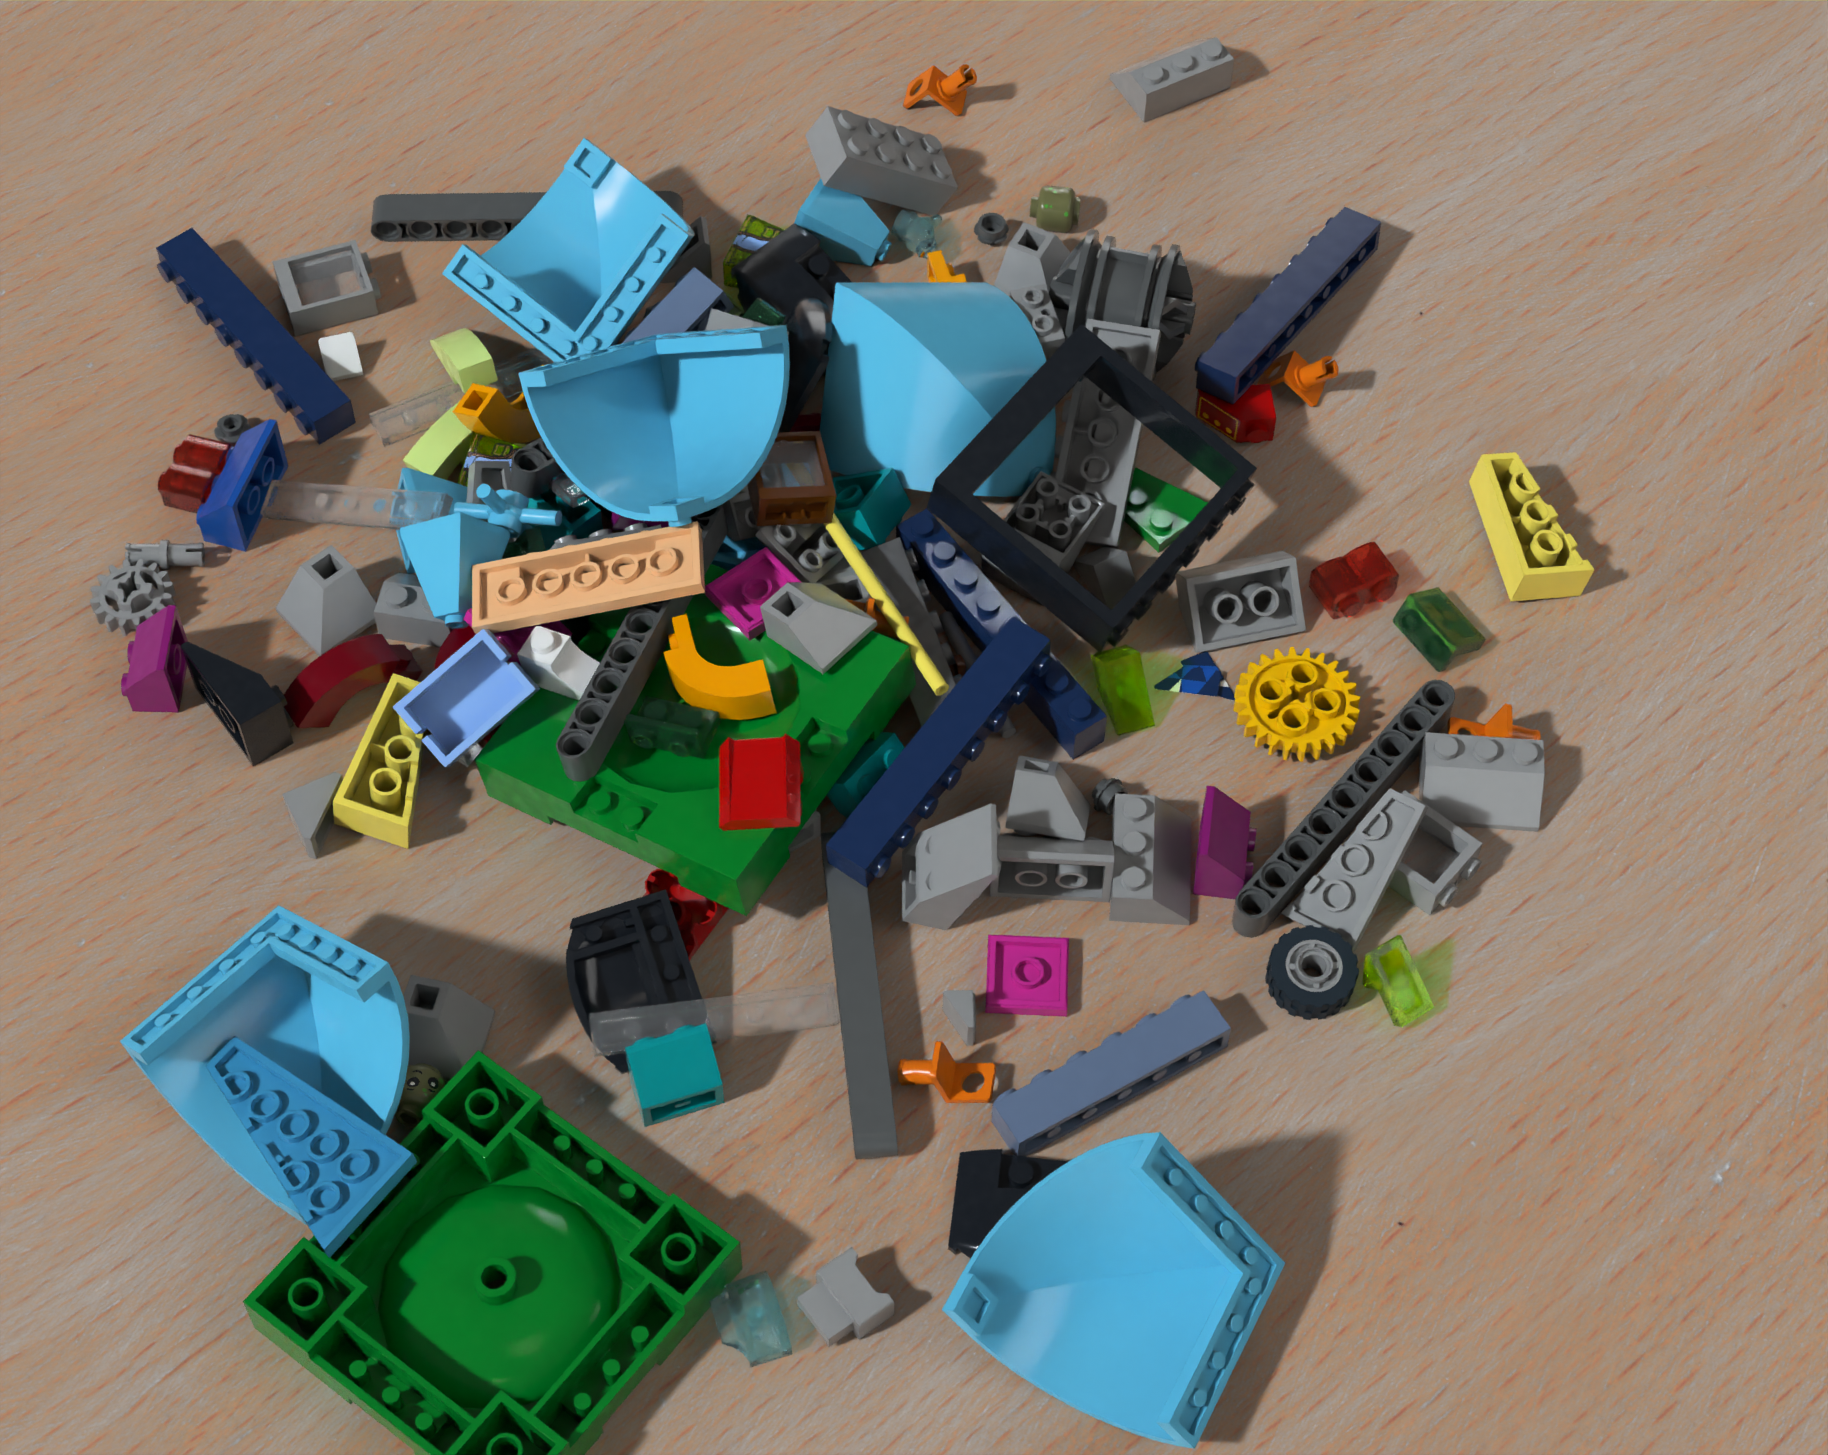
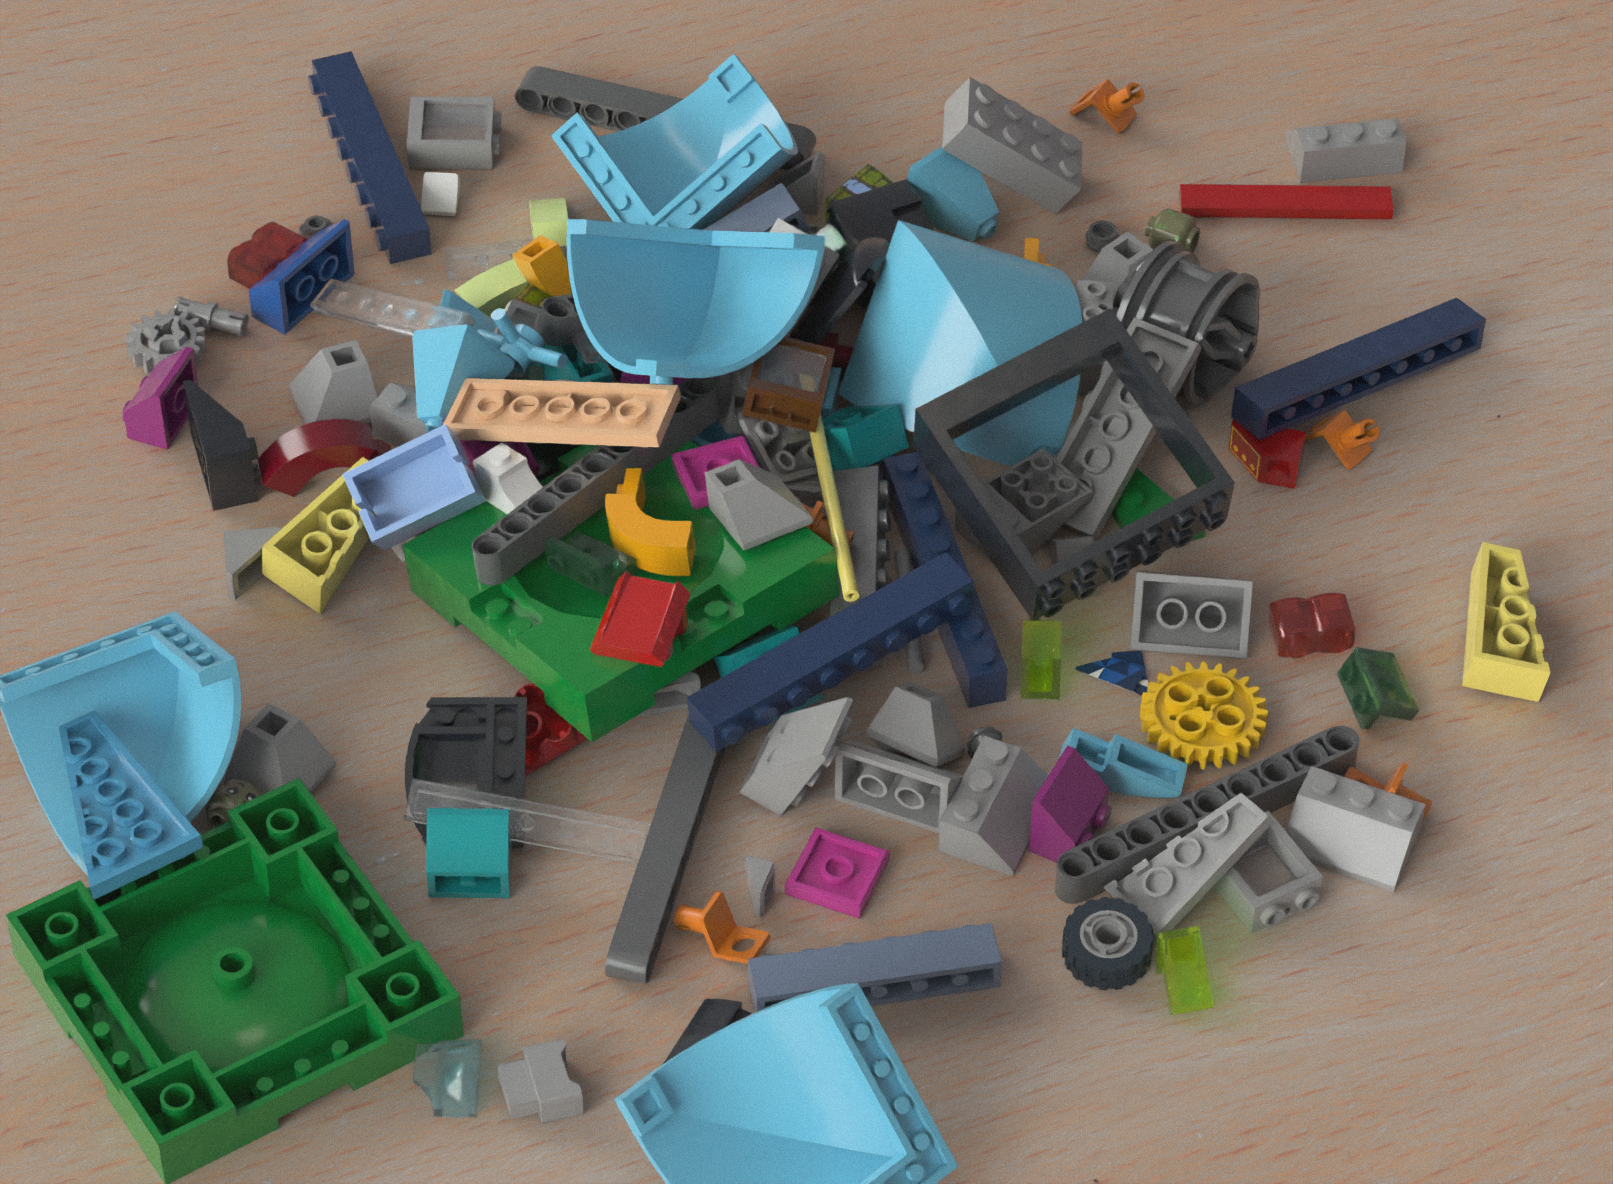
camera: 20 degrees right, 10 degrees down
(916, 232) = (1026, 219): clear light blue animal -> none
(1141, 146) = (1286, 201): none -> red tile
(1246, 779) = (1129, 766): none -> medium azure slope

